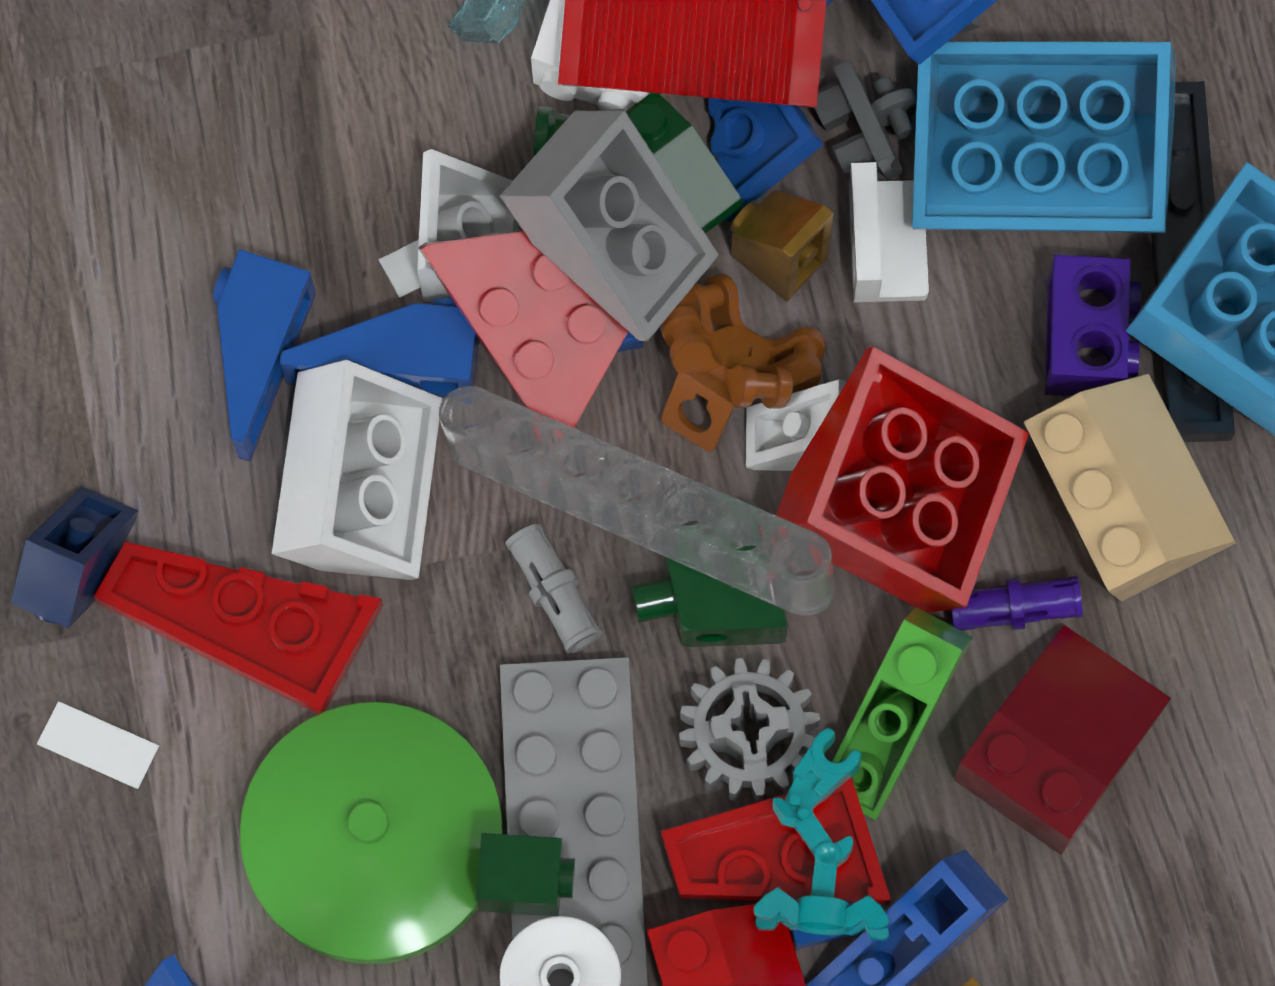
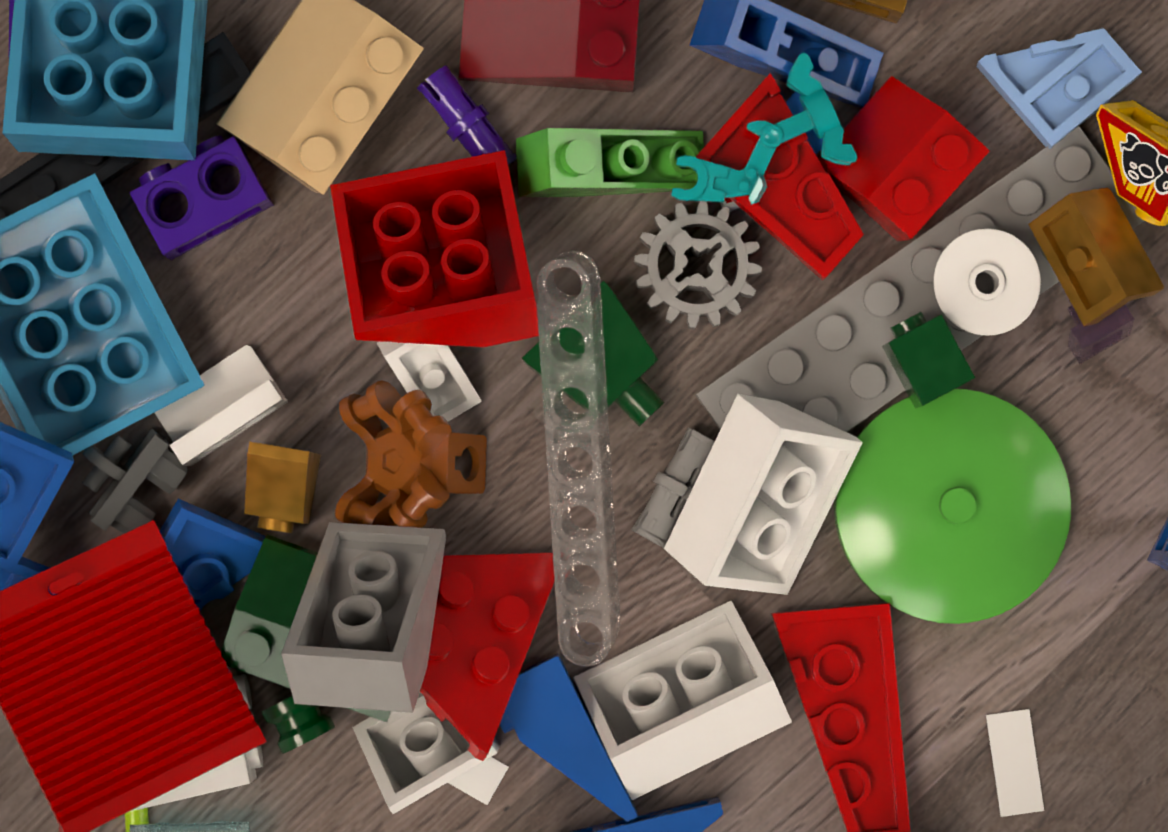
camera: 125 degrees left, 15 degrees up
(494, 647) = (761, 496): none -> white slope

